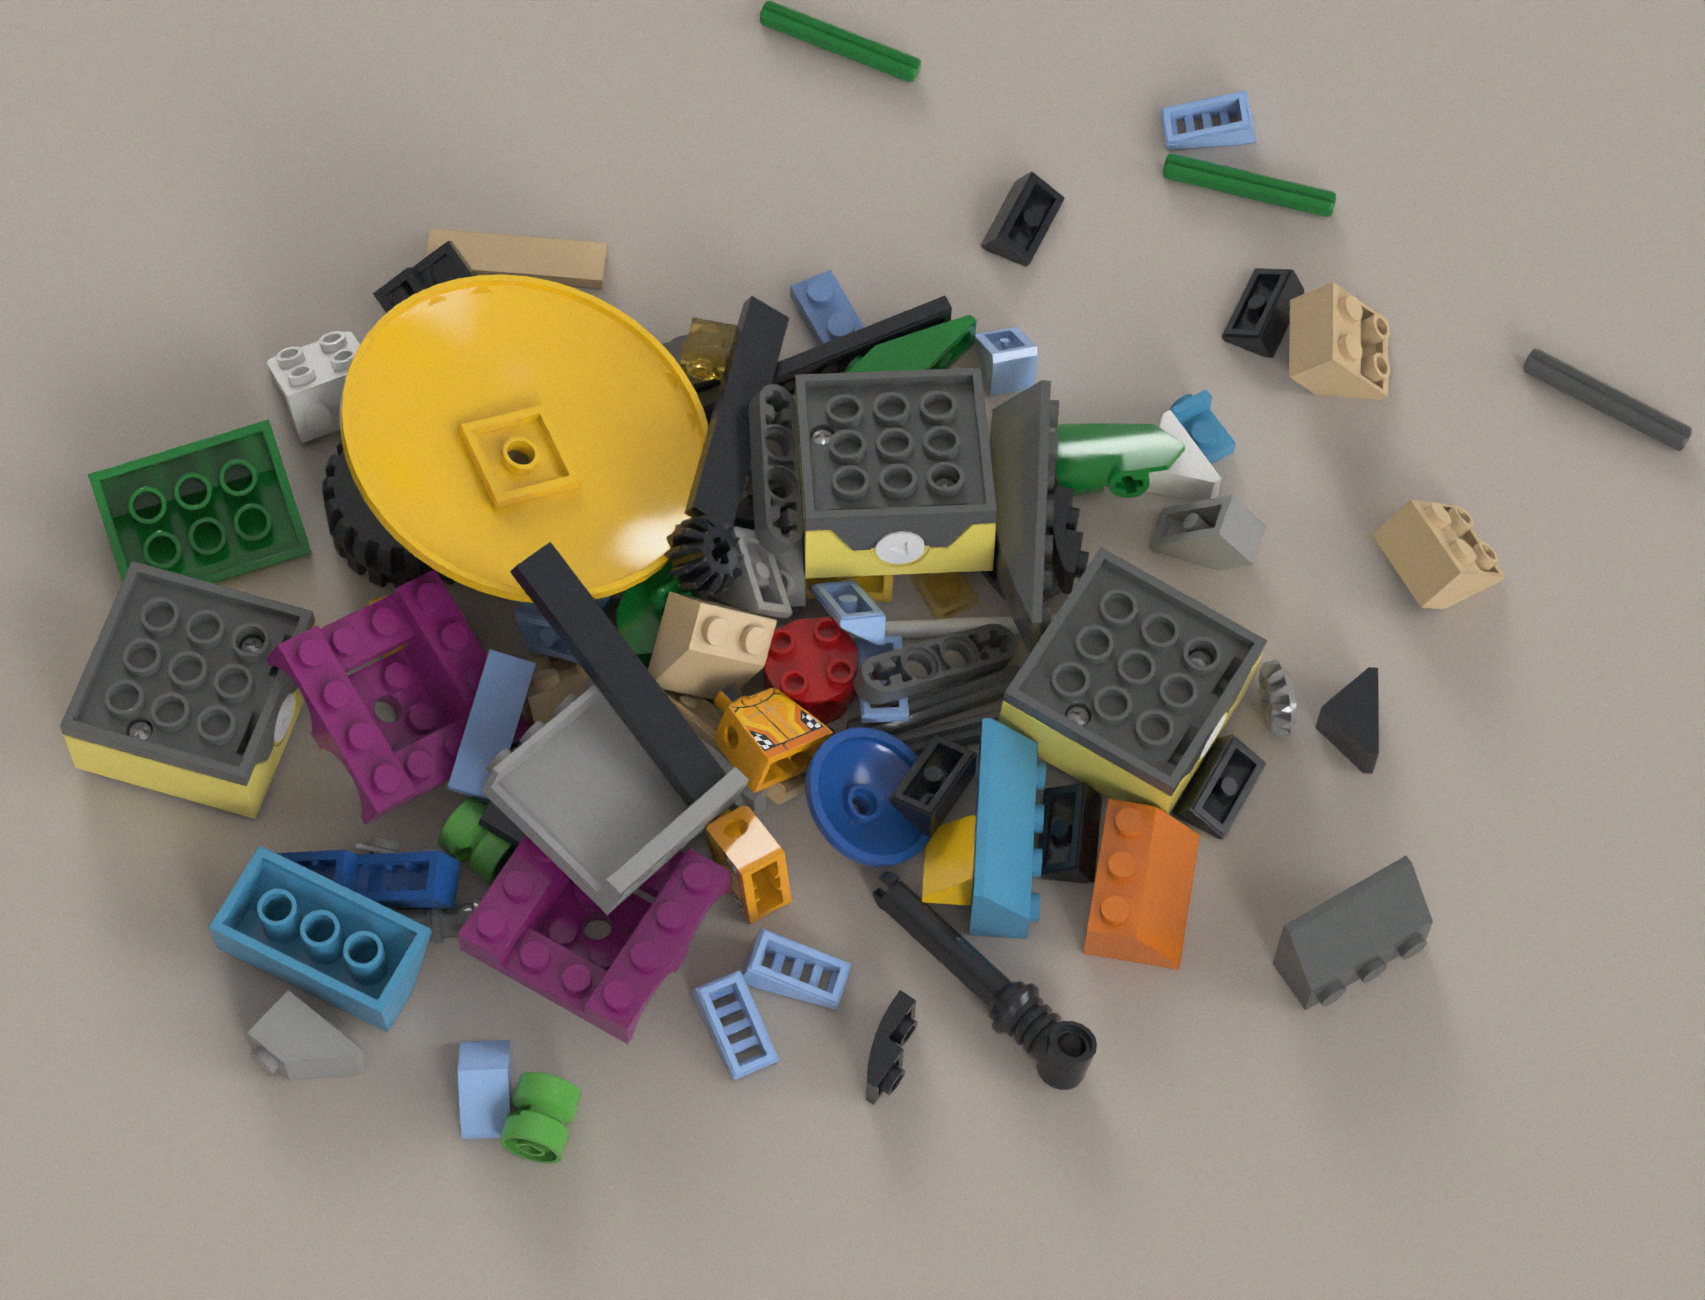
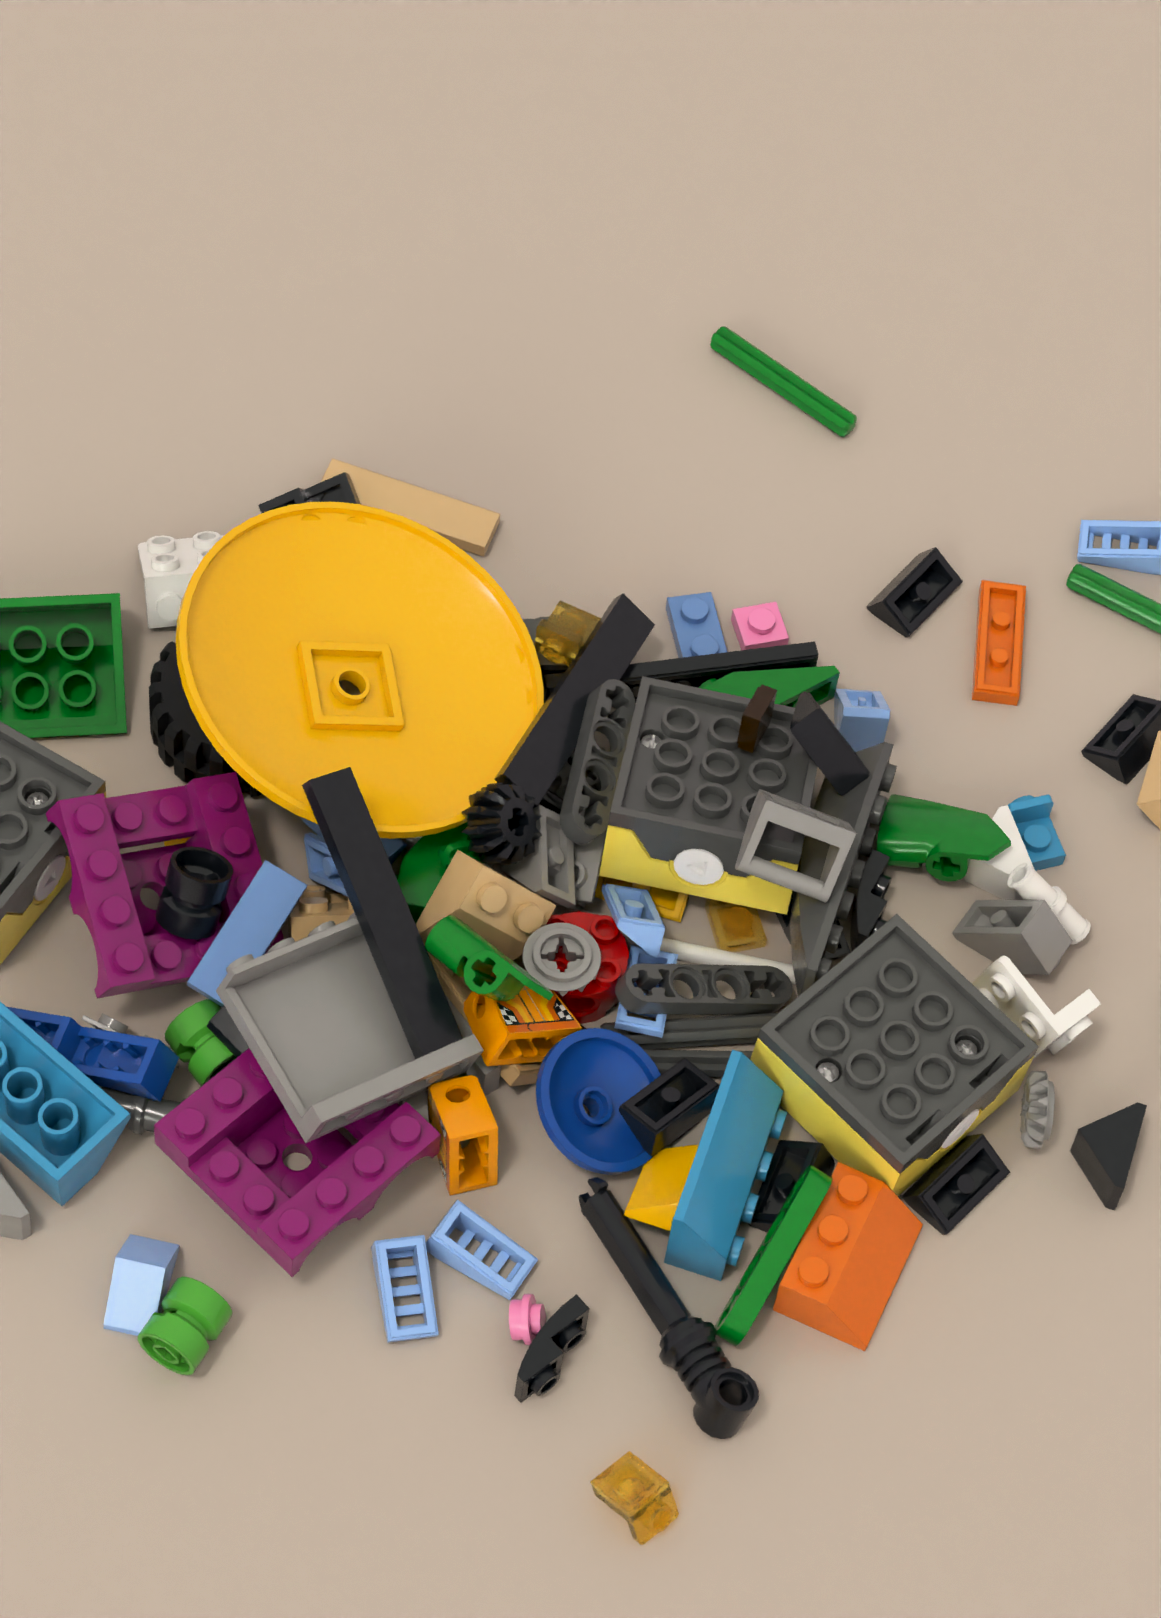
camera: 10 degrees right, 5 degrees down
(430, 698) = (194, 892): none -> black wheel
(717, 693) = (476, 959): none -> green panel
(809, 656) = (579, 949): none -> light grey gear
(858, 1025) = (526, 1318): none -> bright pink plate
(886, 293) = (759, 626): none -> bright pink plate
(917, 390) = (756, 718): none -> dark brown tile
(990, 399) = (826, 745): none -> black slope
(990, 480) = (802, 820): none -> light grey tile
(1008, 1165) = (637, 1496): none -> clear yellow bracket
(1071, 903) = (772, 1255): none -> green beam
(1115, 250) = (999, 643): none -> orange tile
(1216, 484) = (1034, 887): none -> white pin
(1239, 603) = (1022, 1005): none -> white bracket
(1354, 935) = (1049, 1359): dark grey slope -> none

